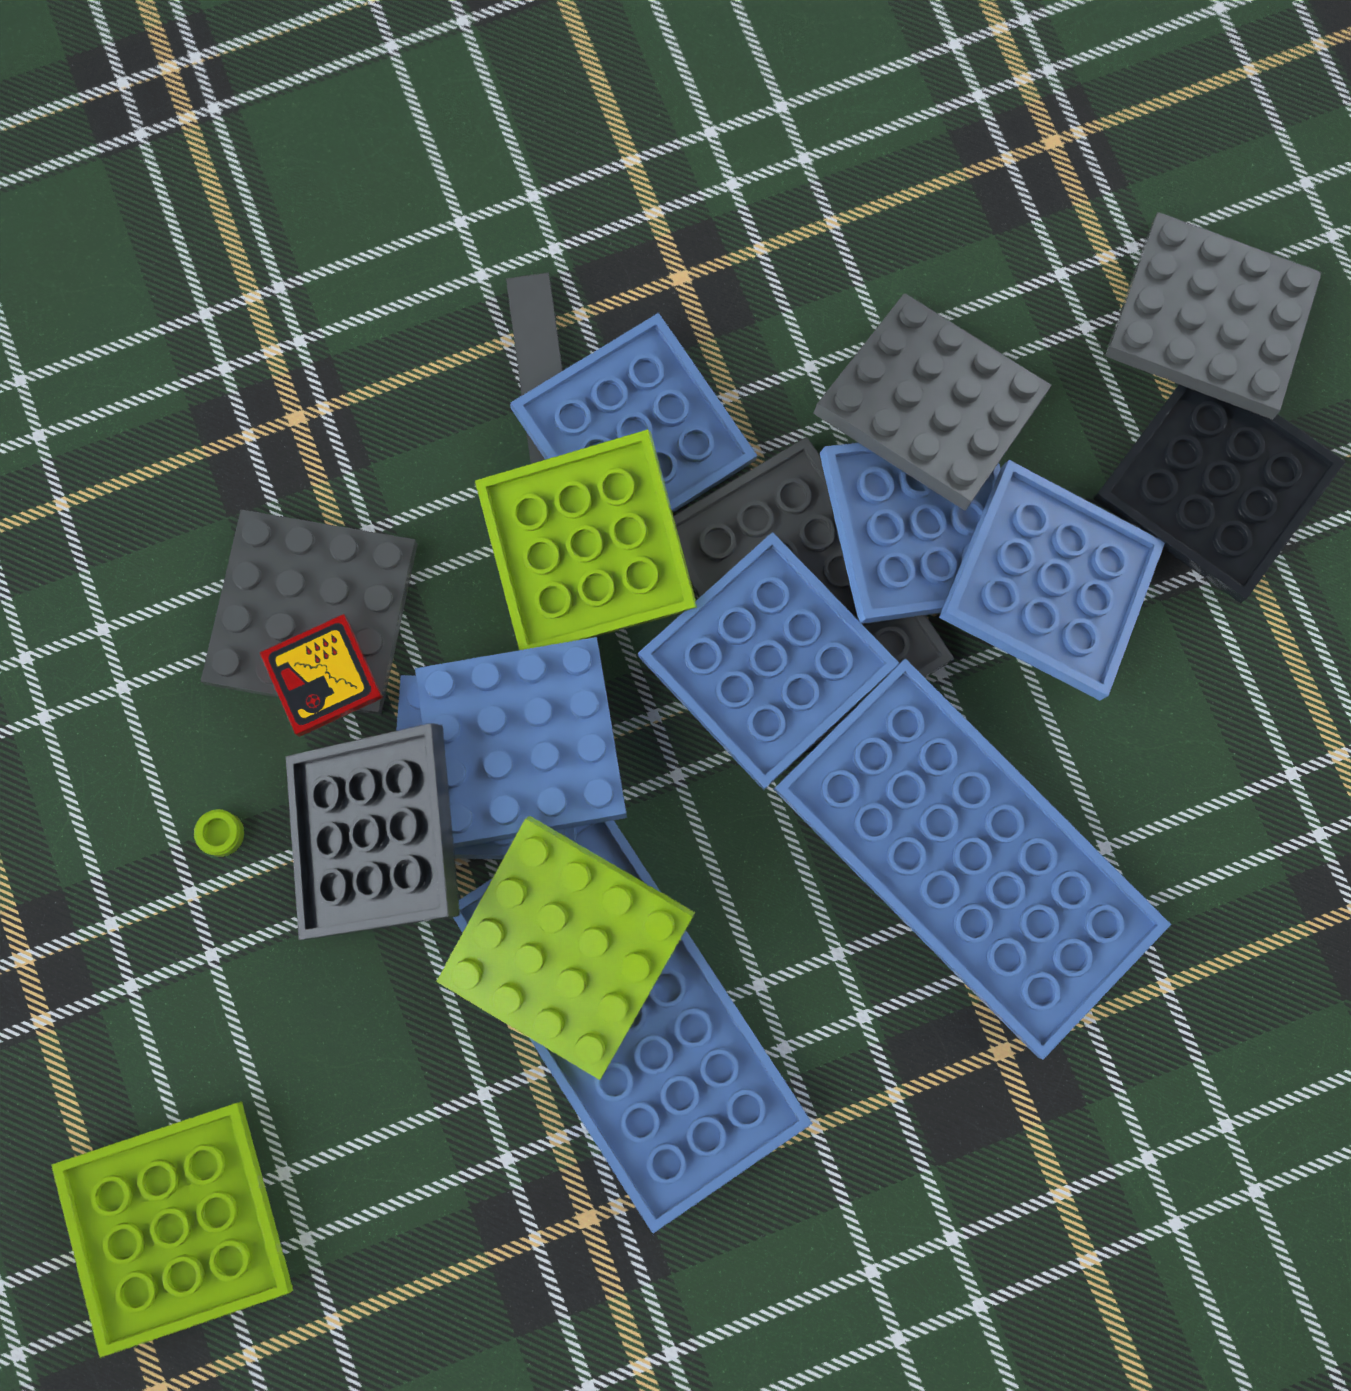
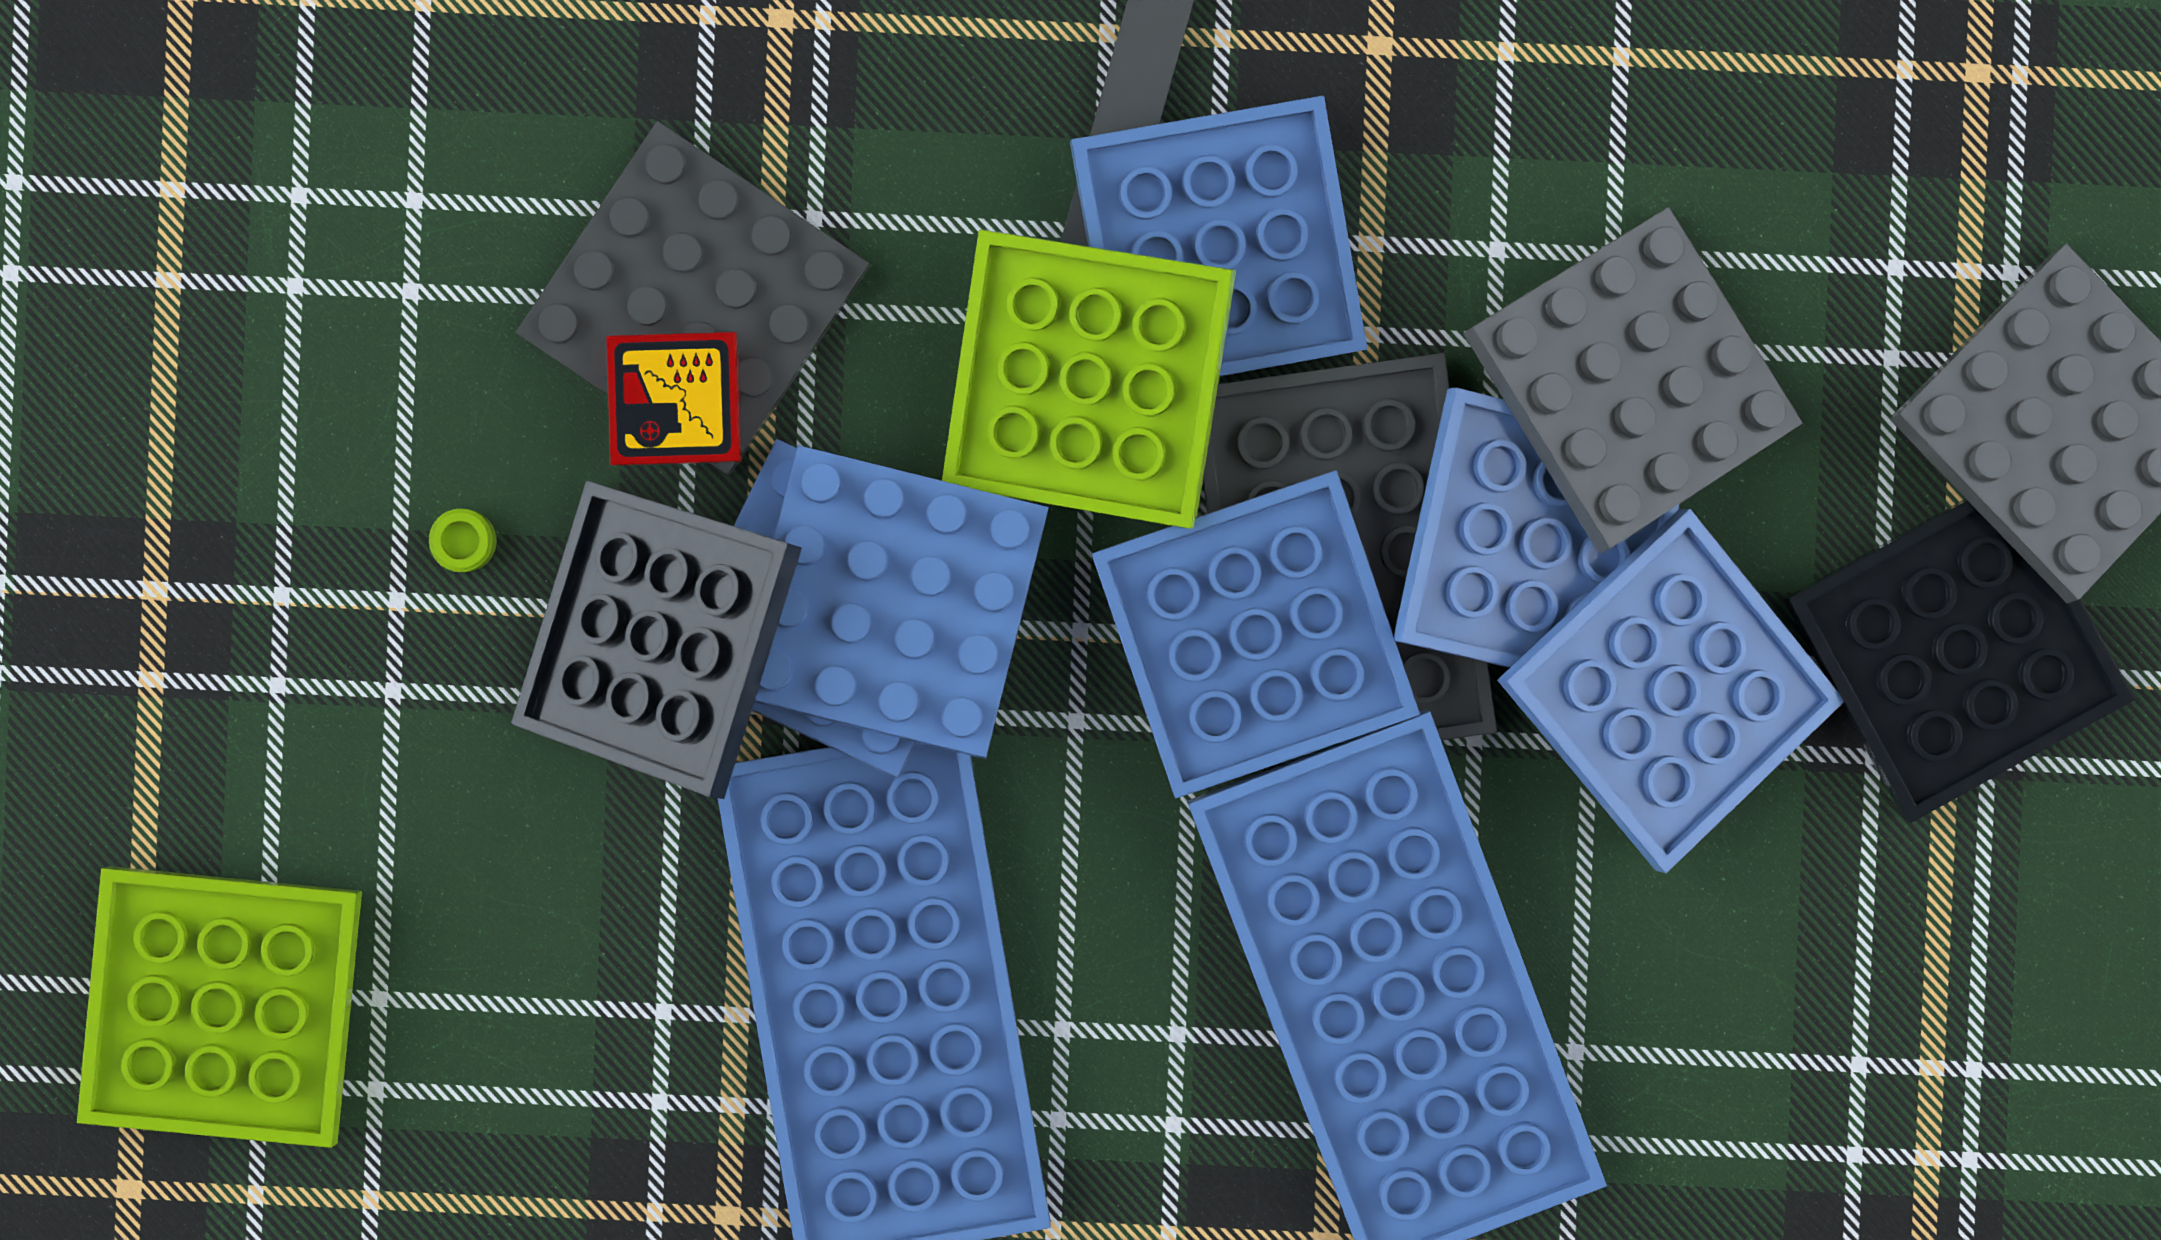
camera: 25 degrees right, 10 degrees up
(565, 947) = (839, 887): lime plate -> none

